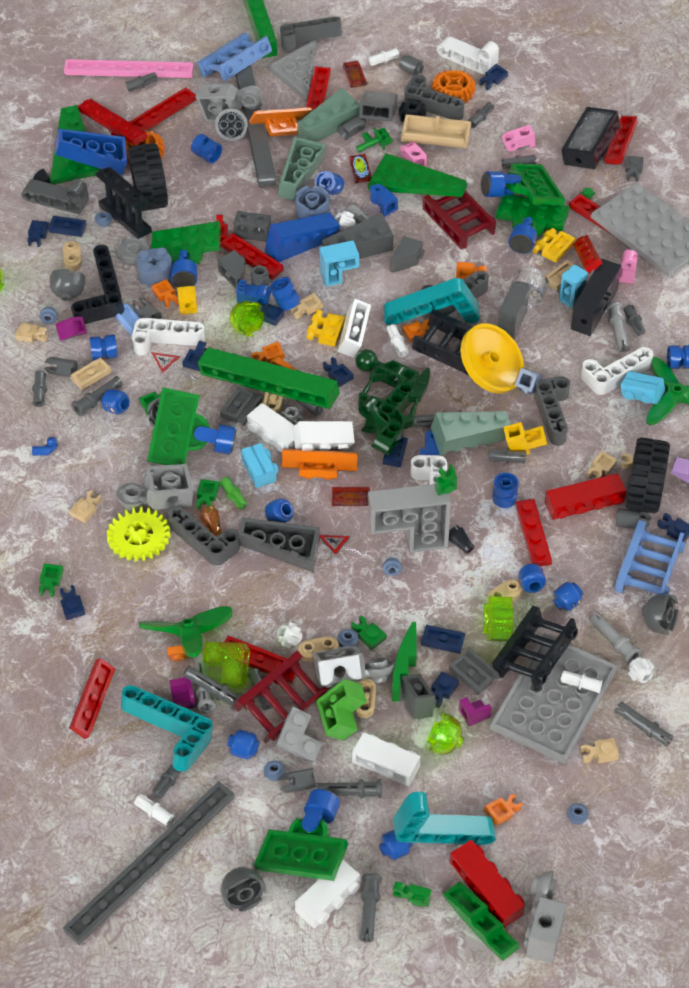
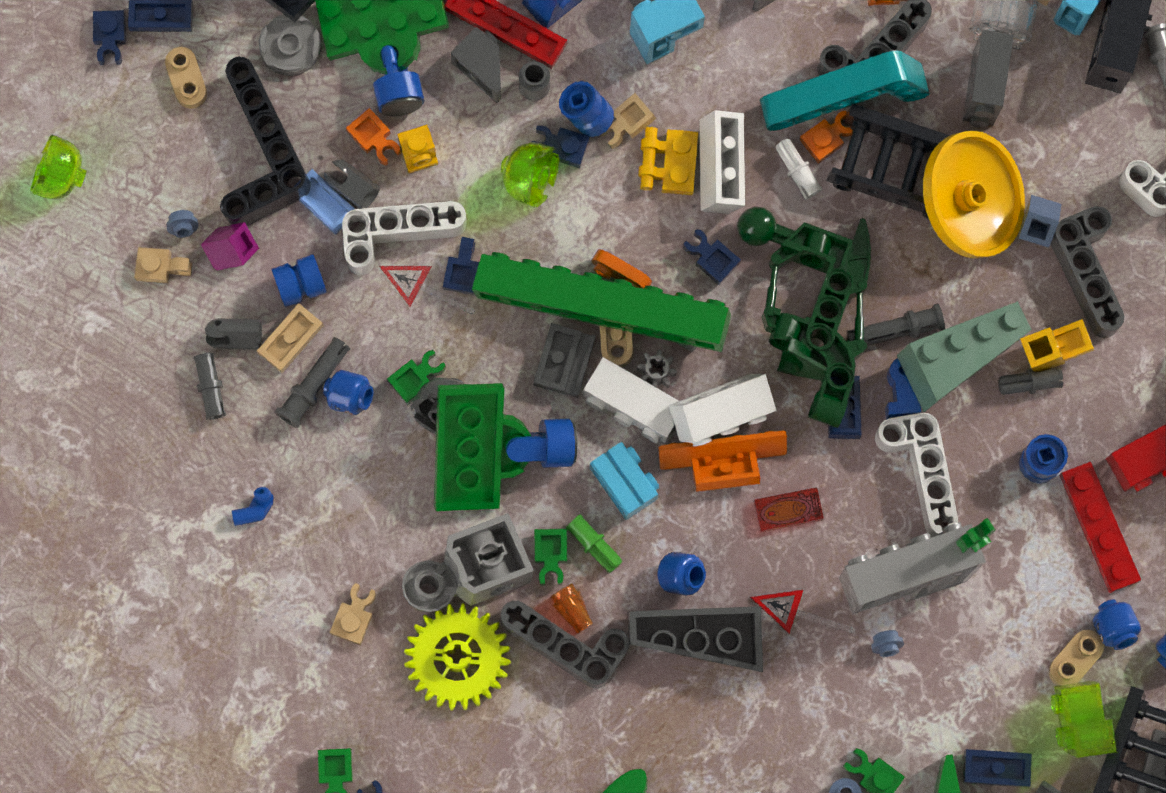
camera: 15 degrees left, 25 degrees up
(66, 284) = (198, 156): dark grey cylinder -> none
(153, 266) = (339, 70): sand blue brick -> none
(252, 292) = (528, 111): blue leg -> none
(269, 352) = (589, 237): orange plate -> none
(460, 539) = (992, 571): black cone -> none

